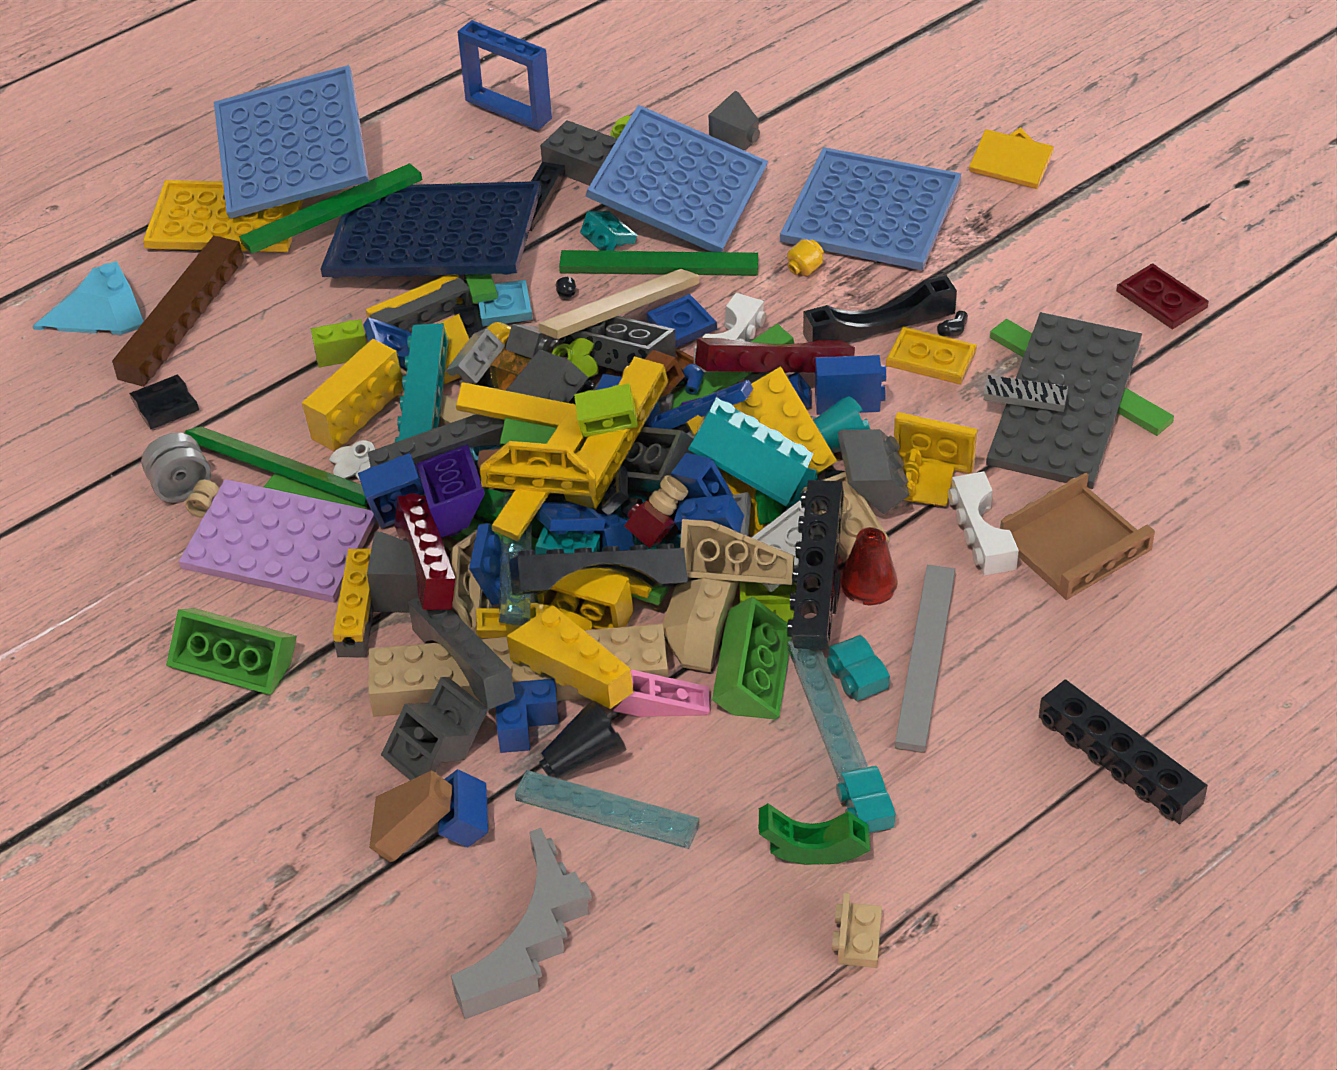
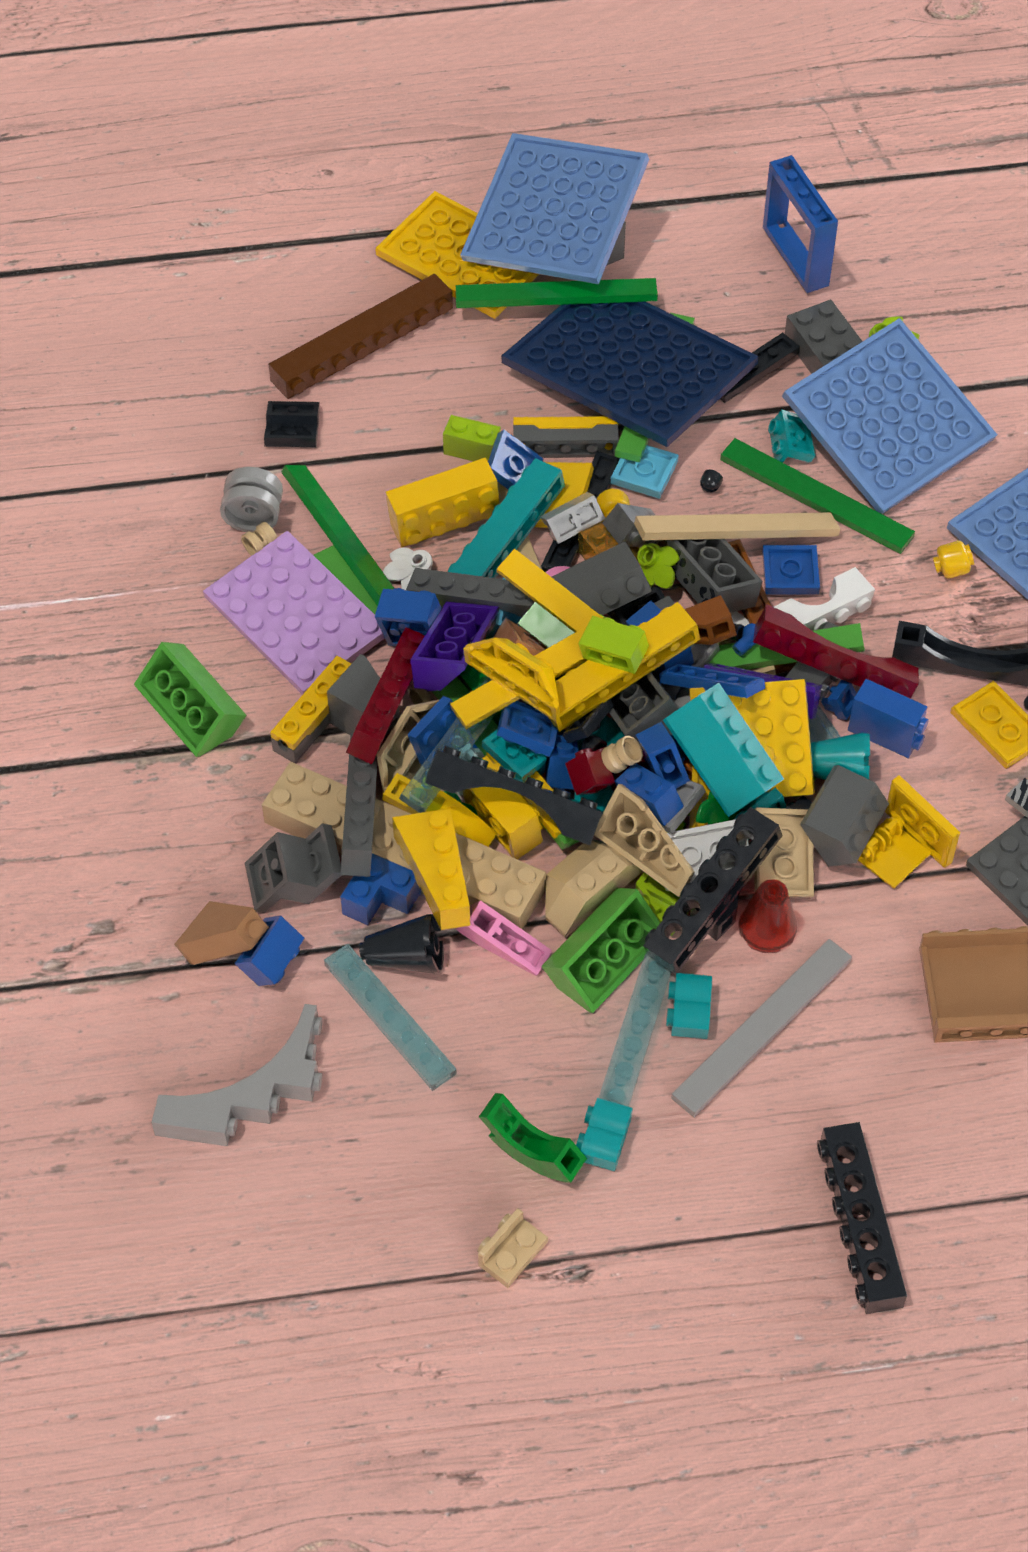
camera: 30 degrees right, 10 degrees up
(95, 304) = (297, 296): medium azure wedge -> none
(734, 122) = (988, 378): dark grey slope -> none
(992, 547) = (902, 954): white arch -> none

